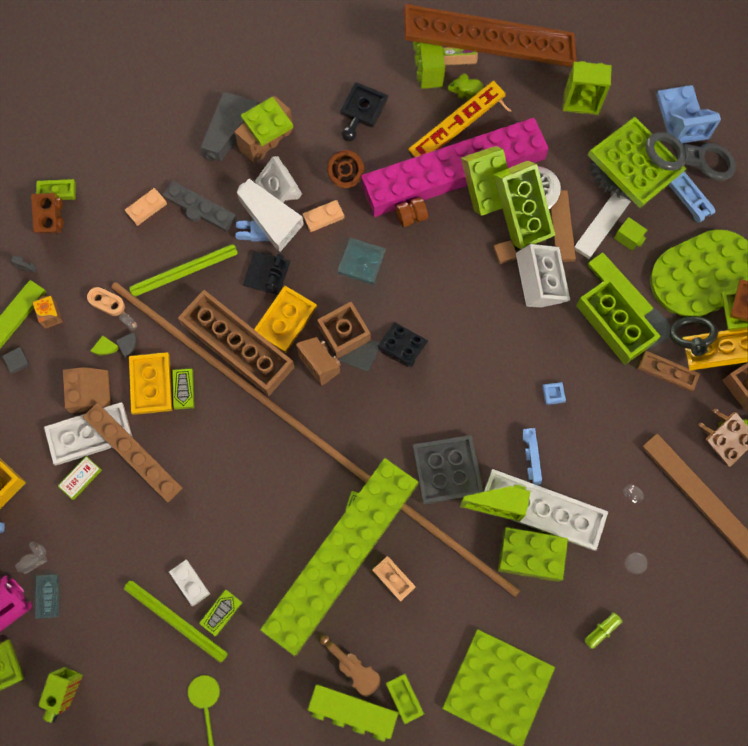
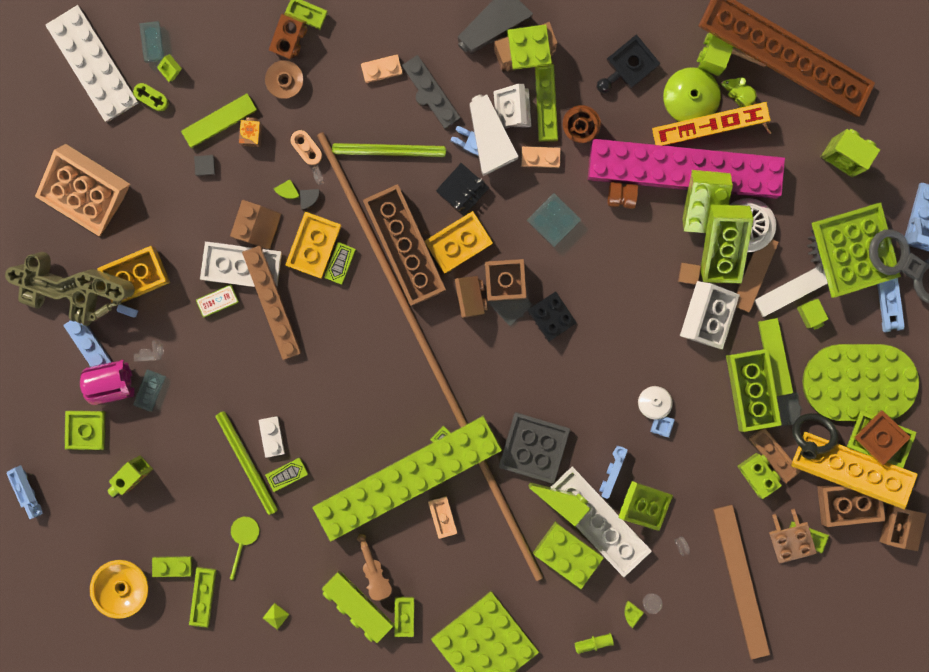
camera: 25 degrees right, 15 degrees up
(19, 264) = (247, 75): dark grey tile -> none
(54, 247) = (281, 70): none -> medium nougat dish
(306, 170) = (546, 103): none -> lime tile
(424, 118) = (678, 96): none -> lime dish
(536, 376) = (655, 402): none -> white piece
(579, 470) = (645, 506): none -> lime plate
(623, 583) = (632, 613): none -> lime tile
(666, 394) = (759, 475): none -> lime brick

